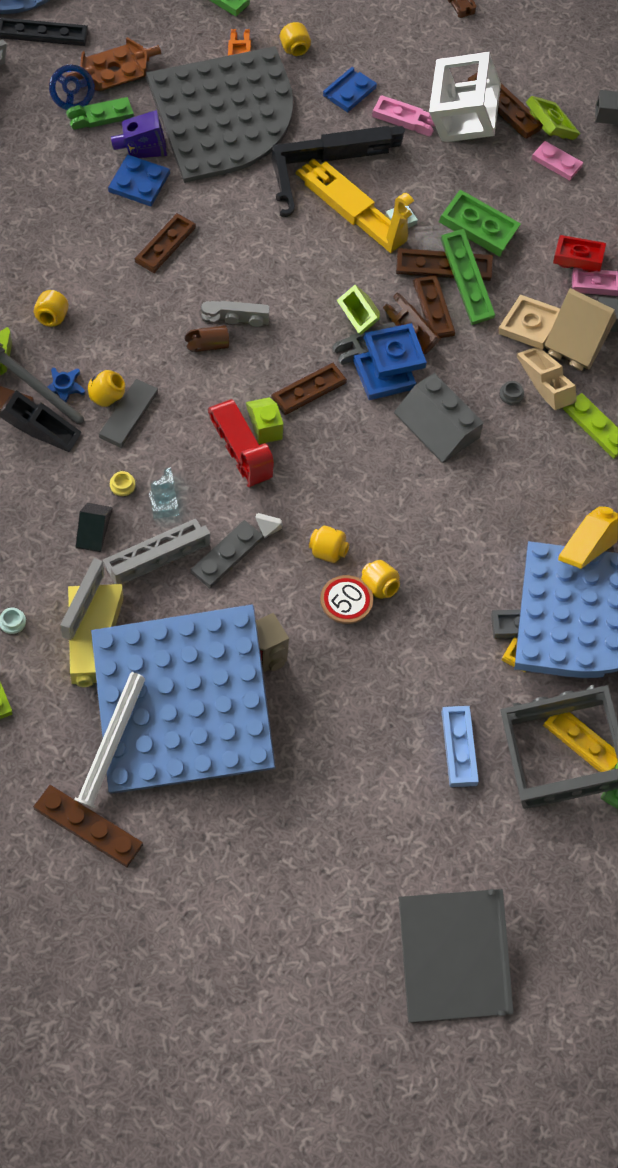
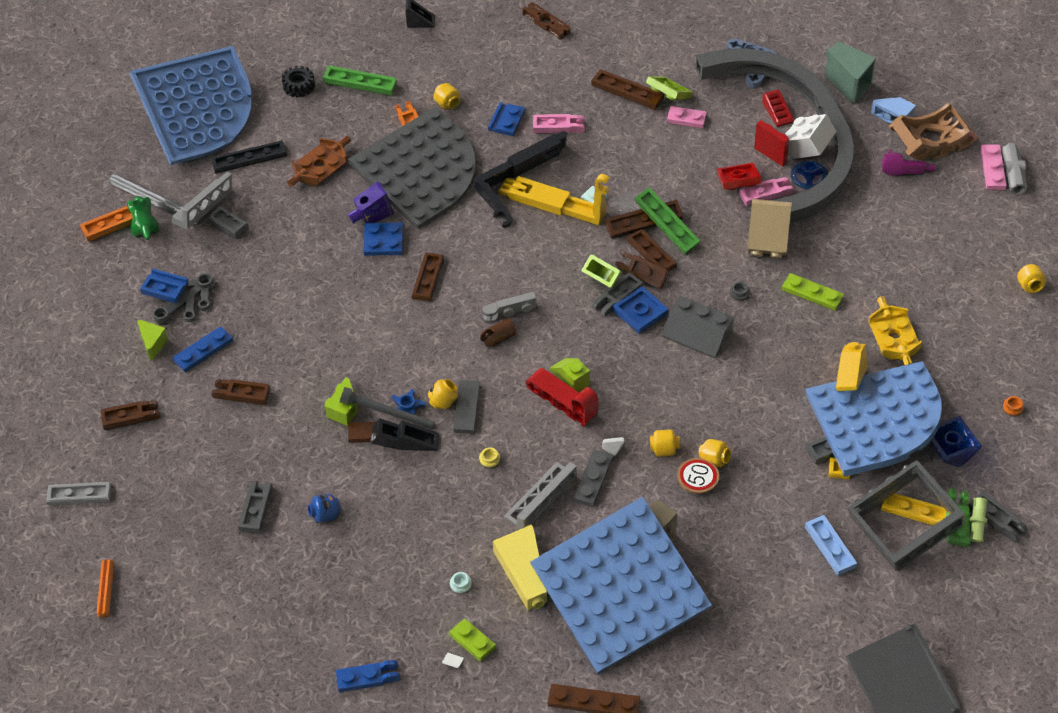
camera: 15 degrees left, 10 degrees down
(51, 308) = (368, 353): yellow head -> none
(57, 76) = (302, 184): clear blue piece -> none
(82, 599) = (511, 543): light grey tile -> none
(92, 526) = (485, 496): black slope -> none
(100, 113) = (327, 201): bright green hinge -> none
(111, 740) = (584, 653): white axle -> none
(163, 496) = (524, 455): clear light blue slope -> none
(309, 388) = (591, 340): reddish brown tile -> none
(395, 350) = (642, 290): blue plate -> none
(465, 108) = (603, 101): white piece -> none
(480, 222) = (661, 180): bright green plate -> none
(529, 321) = (728, 236): tan plate -> none
(548, 378) = (761, 271): tan slope -> none

